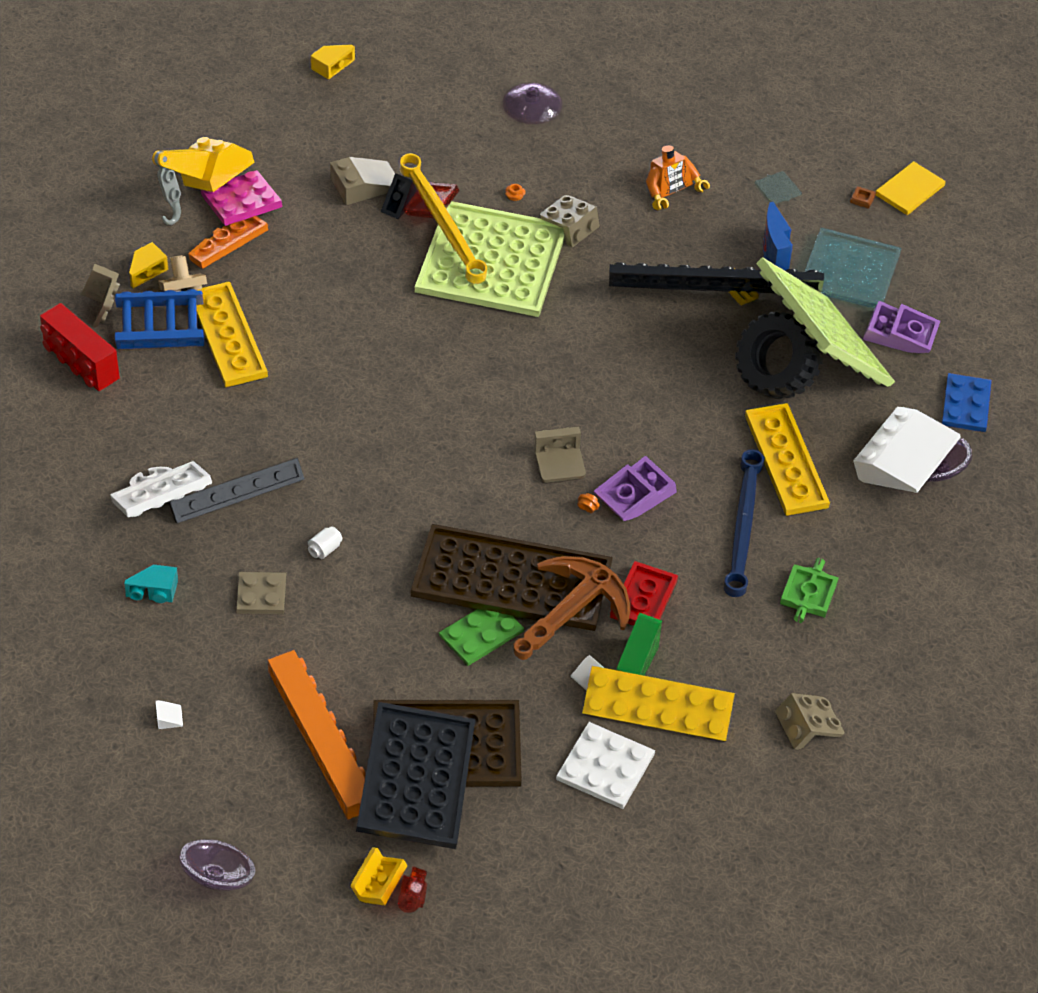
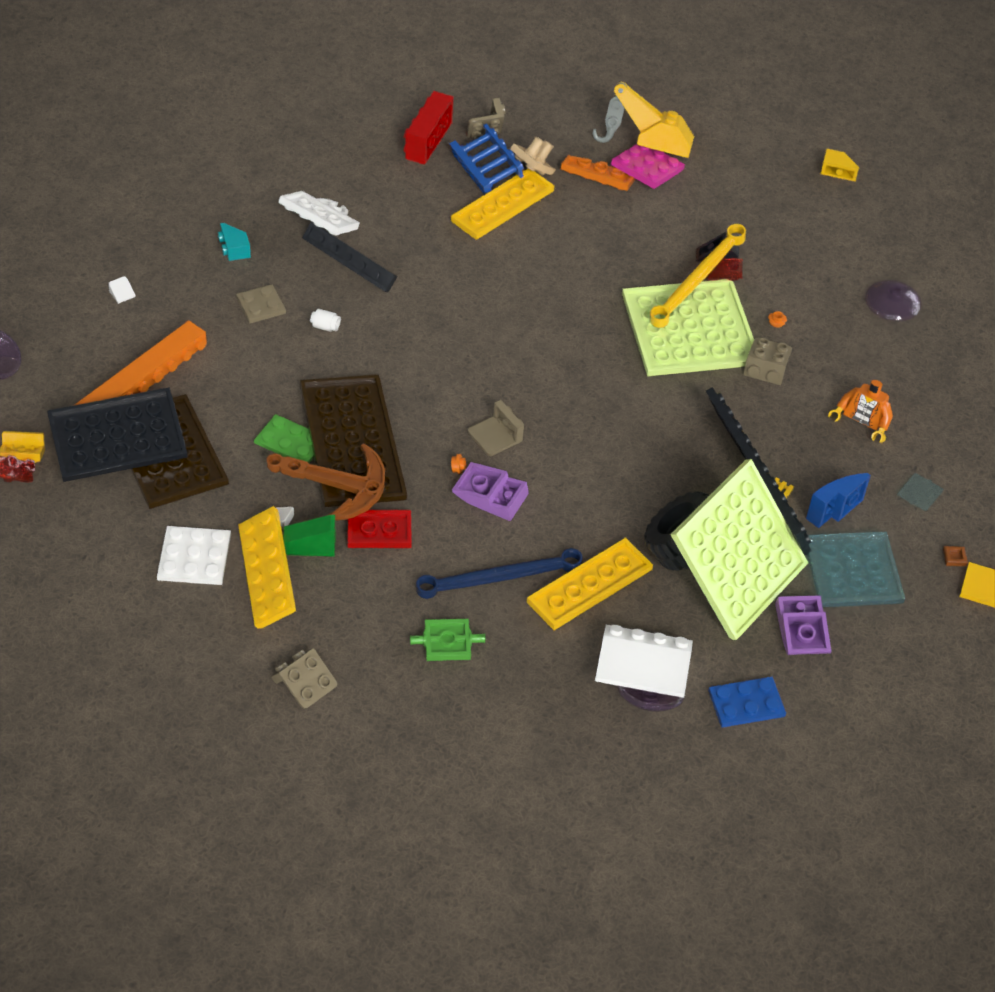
camera: 65 degrees right, 0 degrees up
(147, 264) = (542, 131): yellow slope -> none
(361, 178) = (715, 217): dark tan slope -> none

